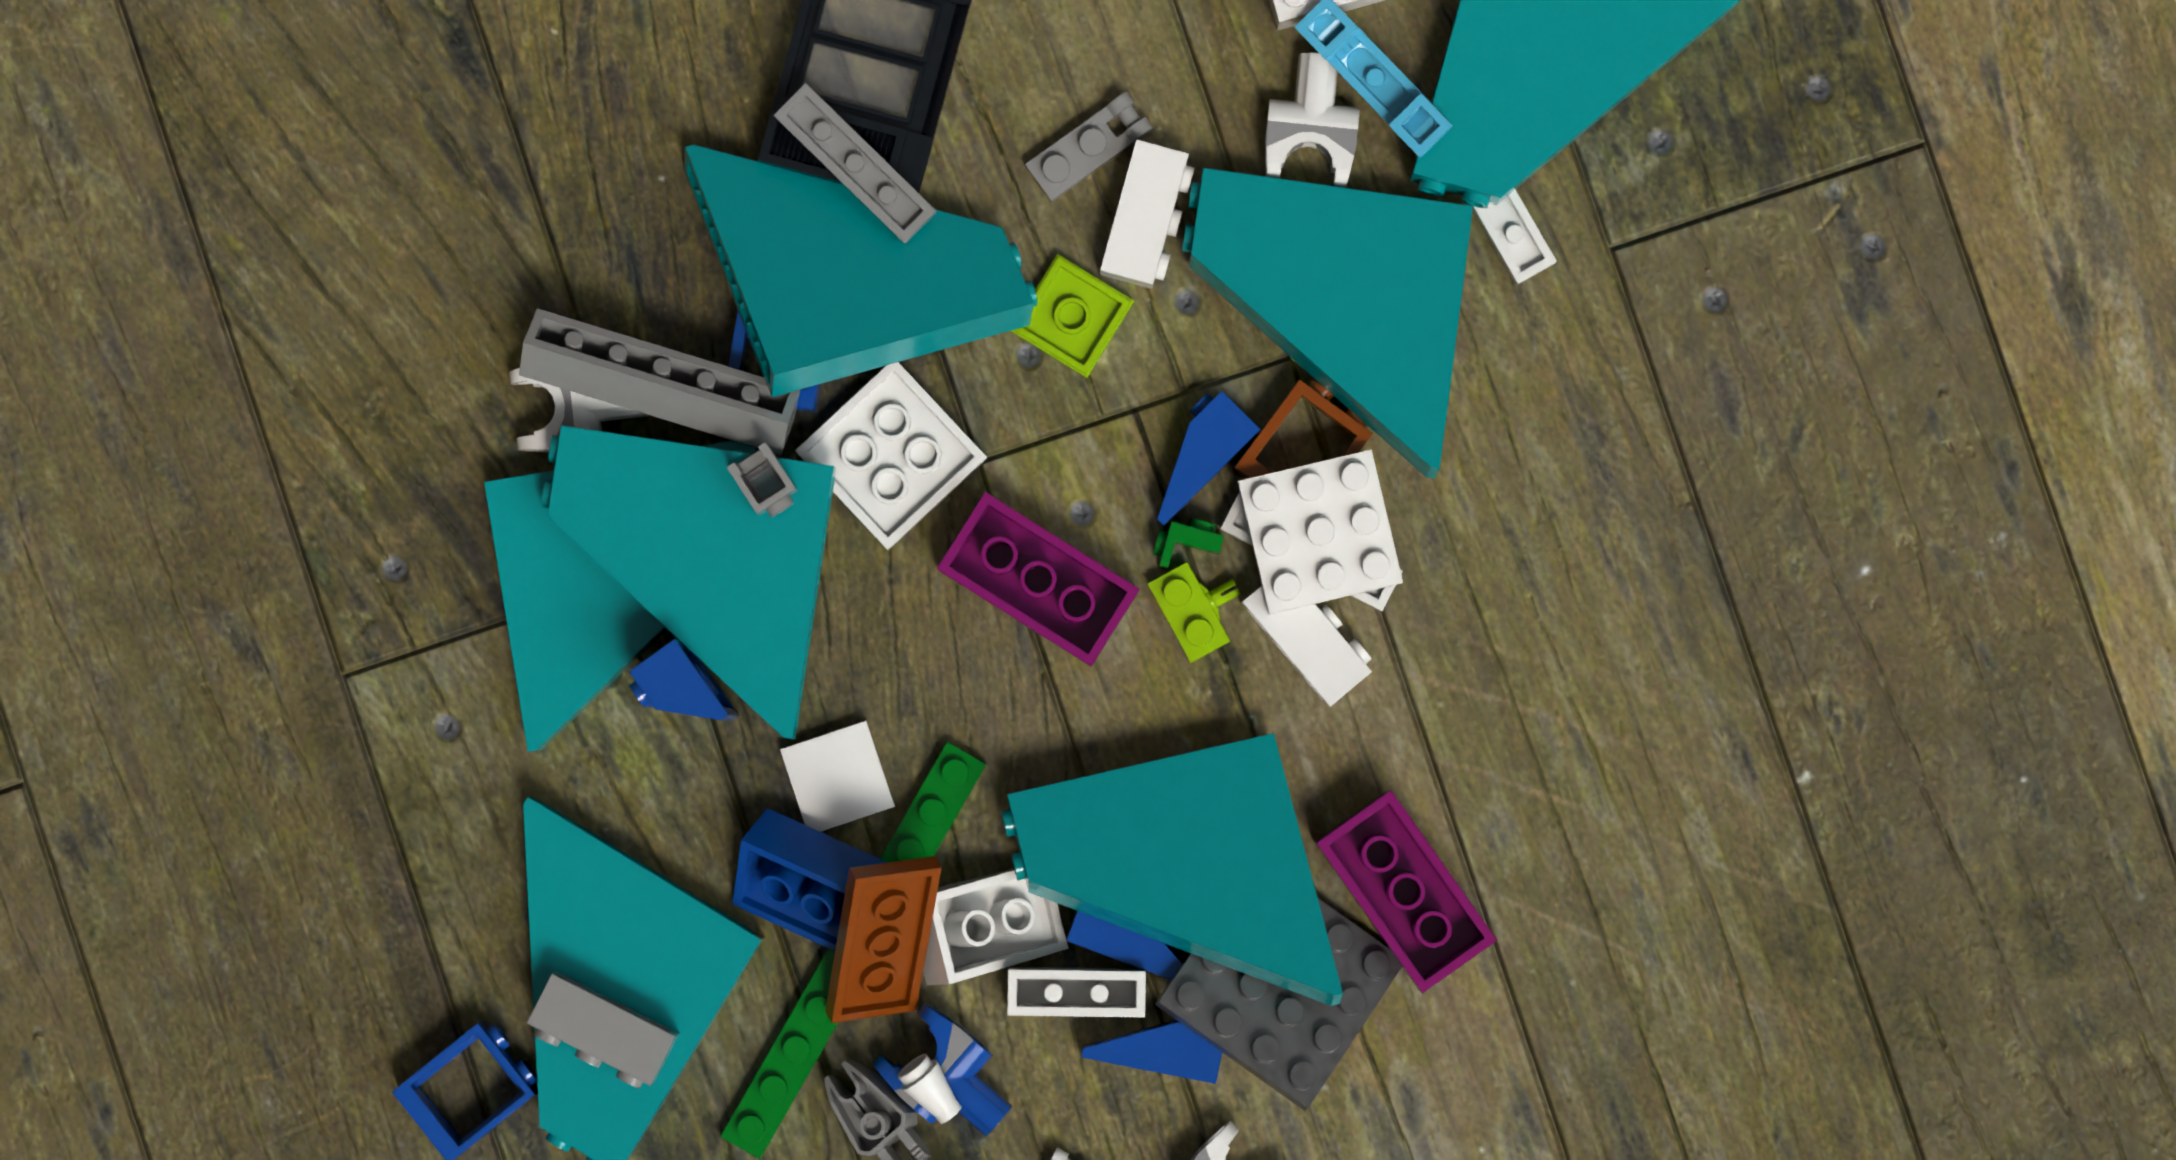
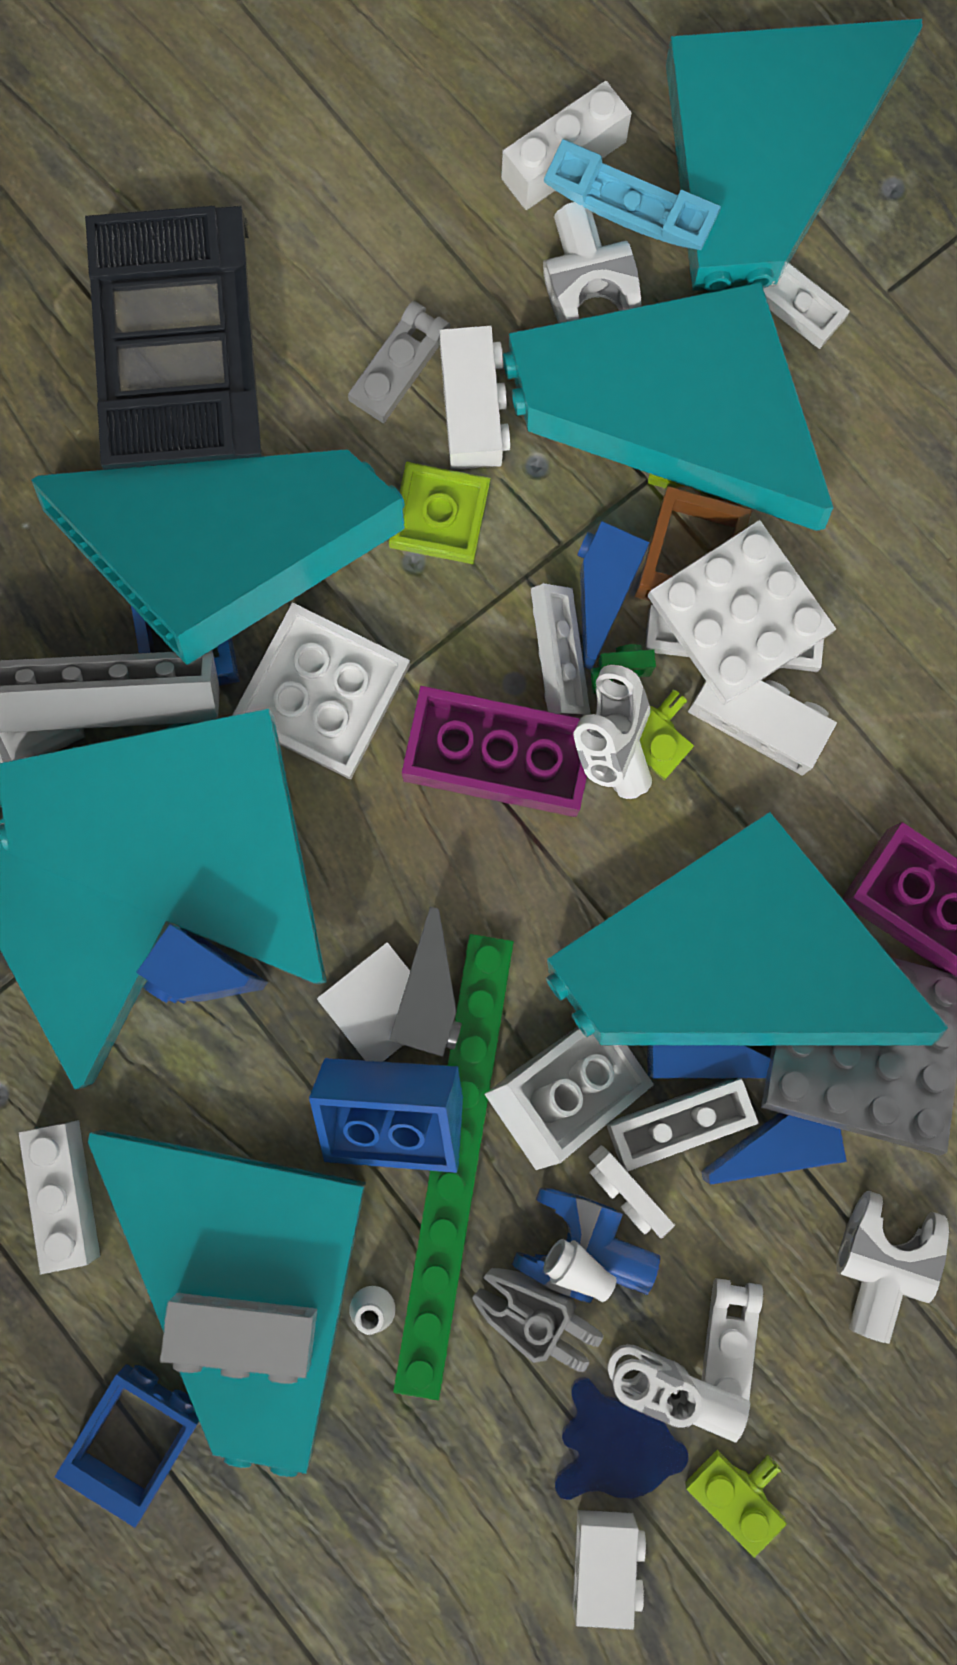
camera: 30 degrees left, 5 degrees down
(478, 843) = (59, 1197): none -> white brick
(737, 1047) = (373, 1299): none -> white cone
(764, 482) = (207, 743): light grey window -> none
(855, 163) = (190, 431): light grey plate -> none
(882, 939) = (480, 1141): dark orange plate -> none
(883, 792) = (428, 1001): none -> dark grey slope
(1009, 1052) = (639, 1205): none -> white plate
(1136, 501) = (560, 650): none -> white plate
(1143, 619) = (612, 745): none -> white connector

